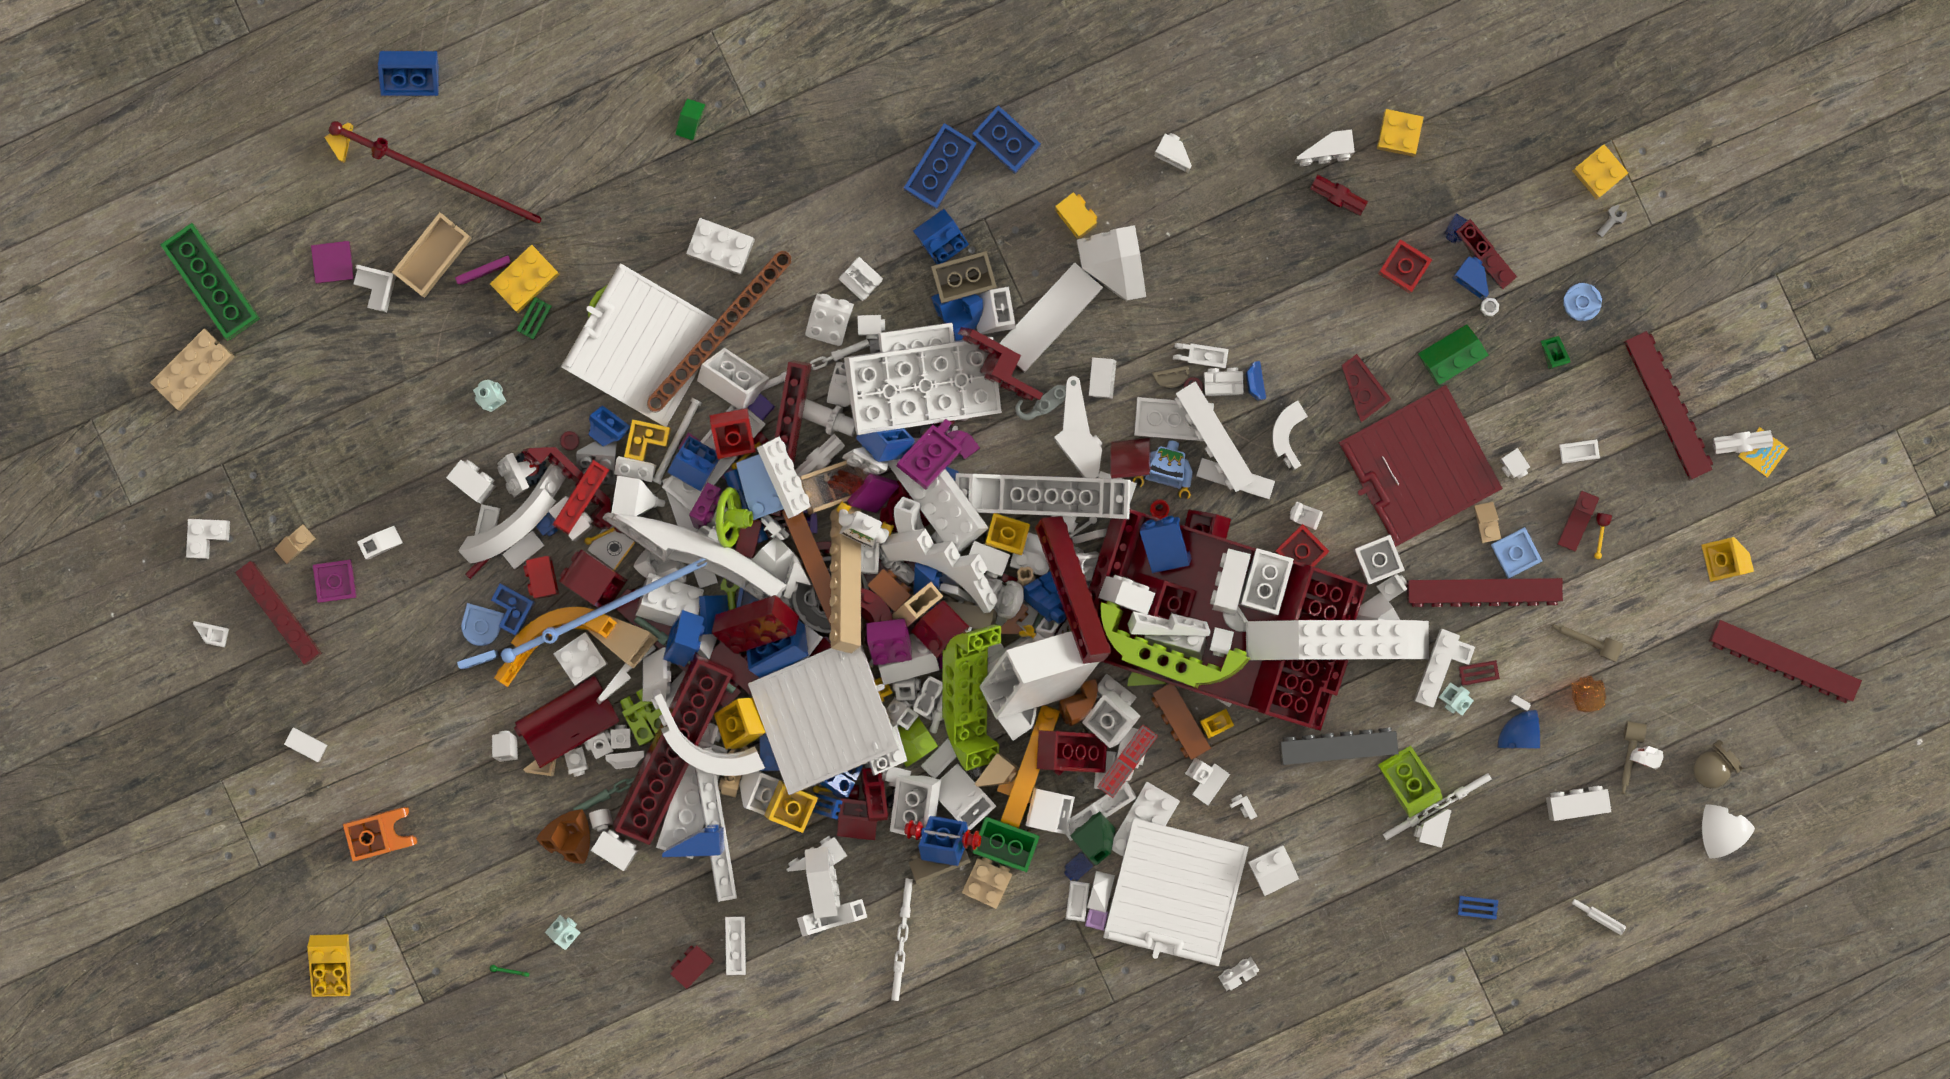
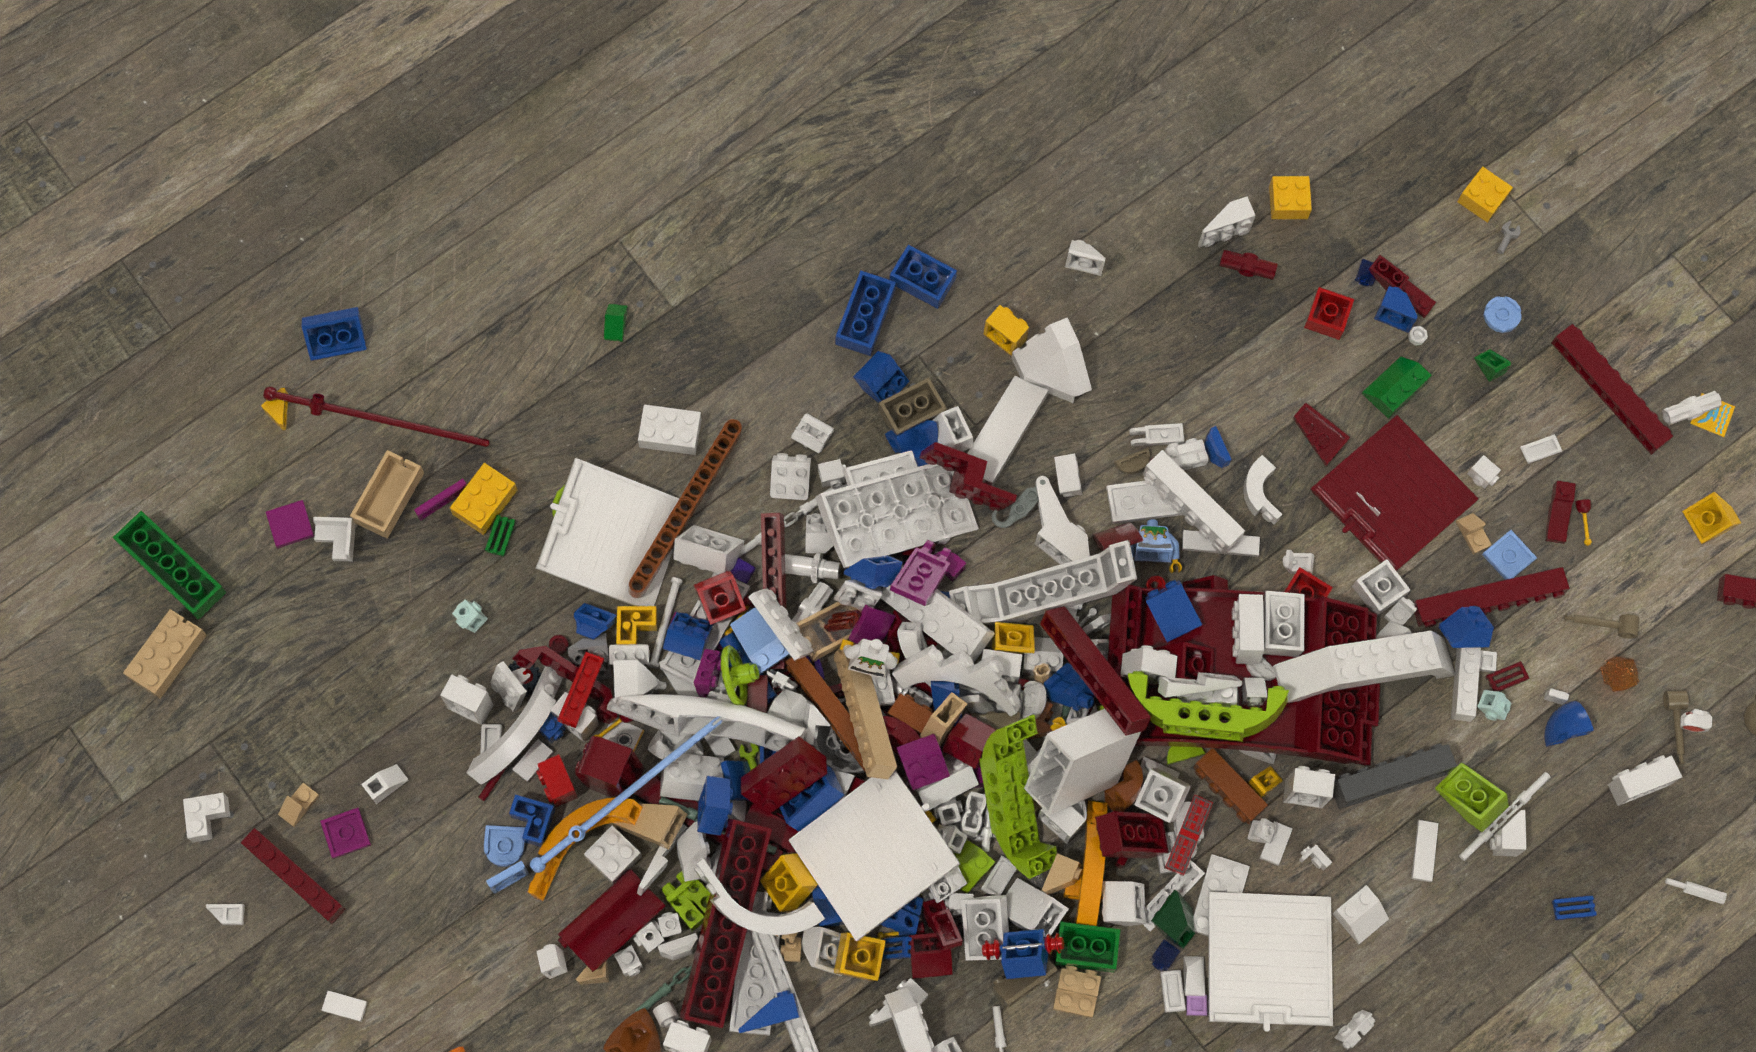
camera: 15 degrees left, 15 degrees down
(1253, 742) = (1309, 787): none -> white brick
(1351, 822) = (1424, 851): none -> white tile
(1448, 621) = (1467, 628): none -> blue slope

